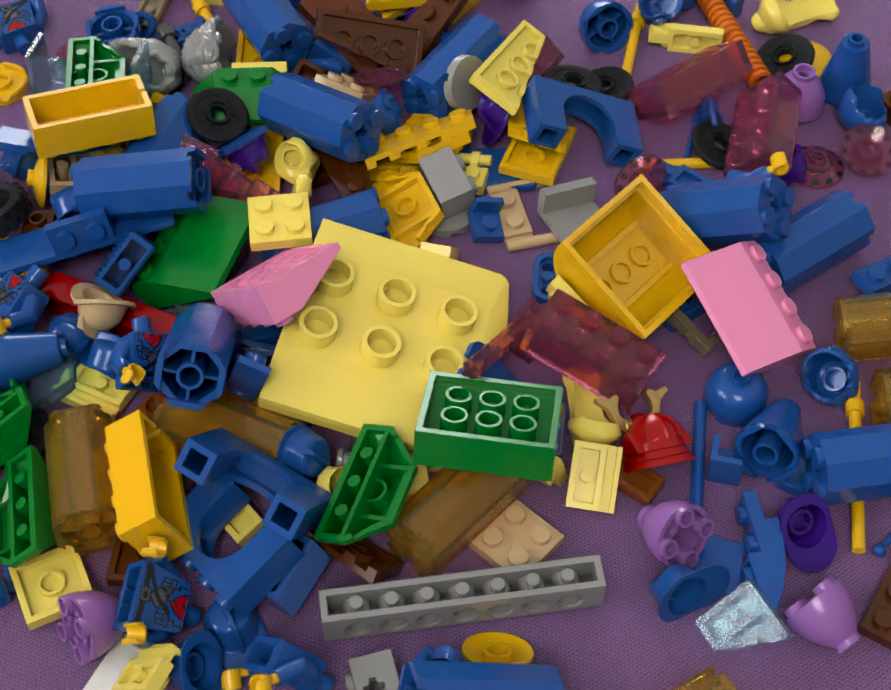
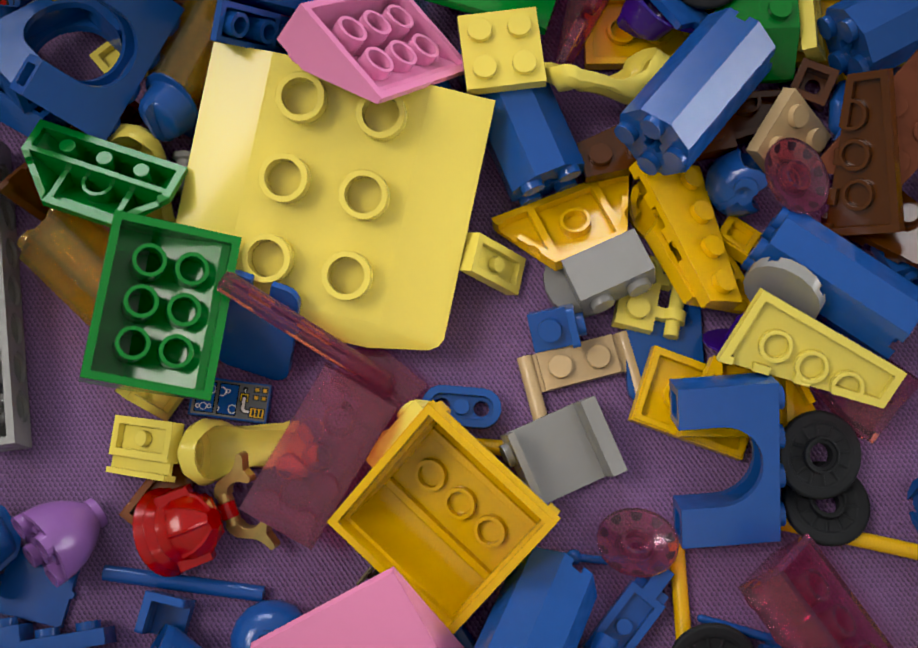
camera: 90 degrees right, 25 degrees up
(517, 538) = (60, 360): tan plate -> none

